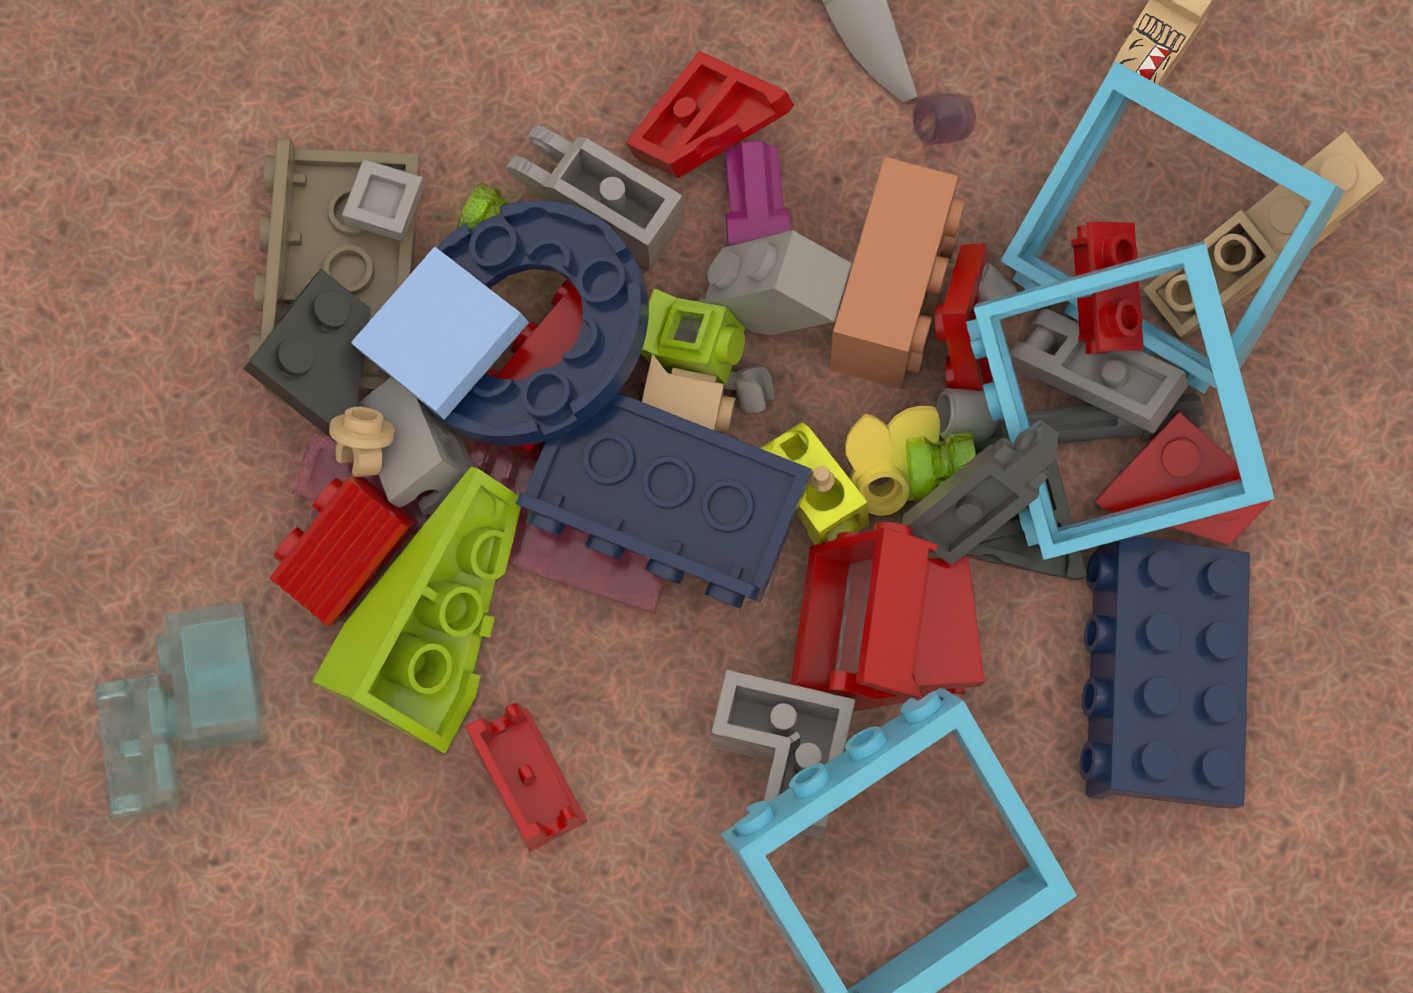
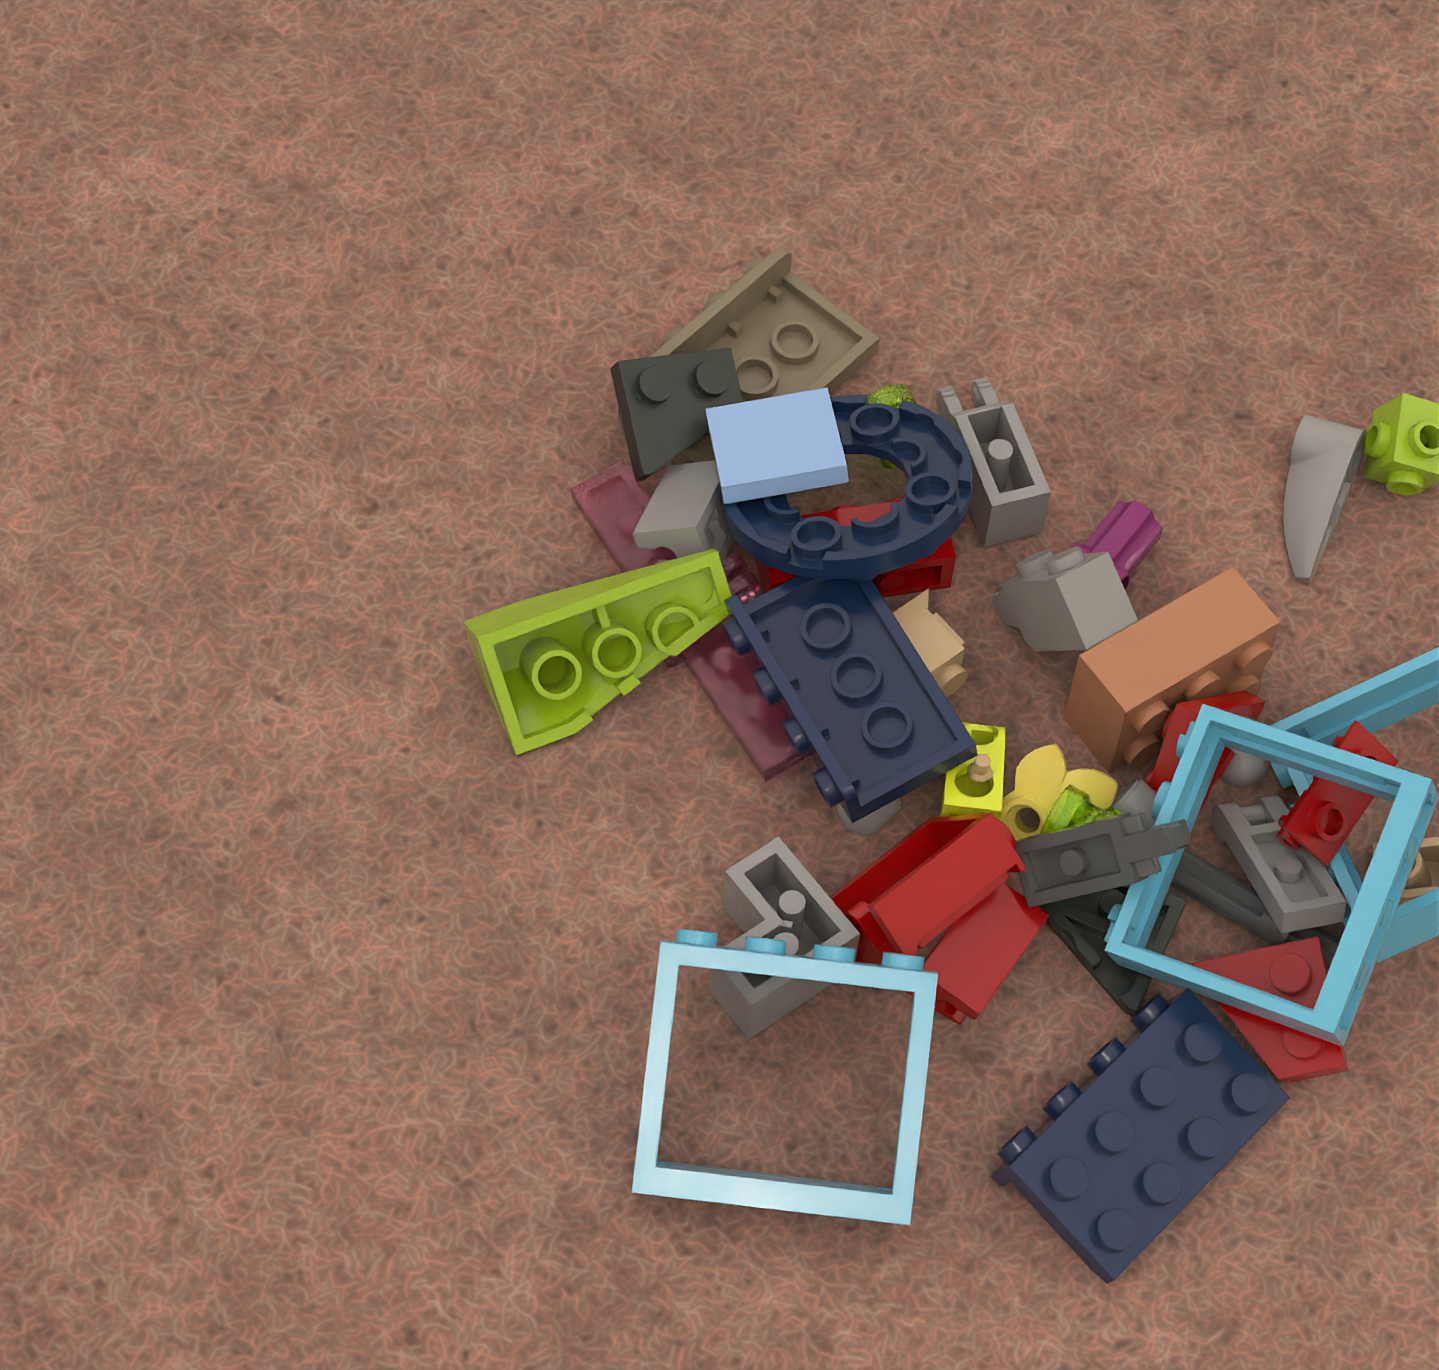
camera: 35 degrees right, 15 degrees down
(138, 748) = (300, 576): clear light blue hinge -> none
(212, 678) = (395, 568): clear light blue brick -> none
(341, 548) = (569, 543): red brick -> none
(359, 439) = (654, 472): tan plate -> none
(383, 200) = (821, 342): light grey plate -> none
(526, 776) = (559, 811): red hinge -> none
(693, 336) = (971, 600): lime window -> none
(705, 115) = (1124, 466): red wing -> none
(752, 388) = (988, 677): light grey hand -> none
(953, 118) = (1321, 613): piece -> none

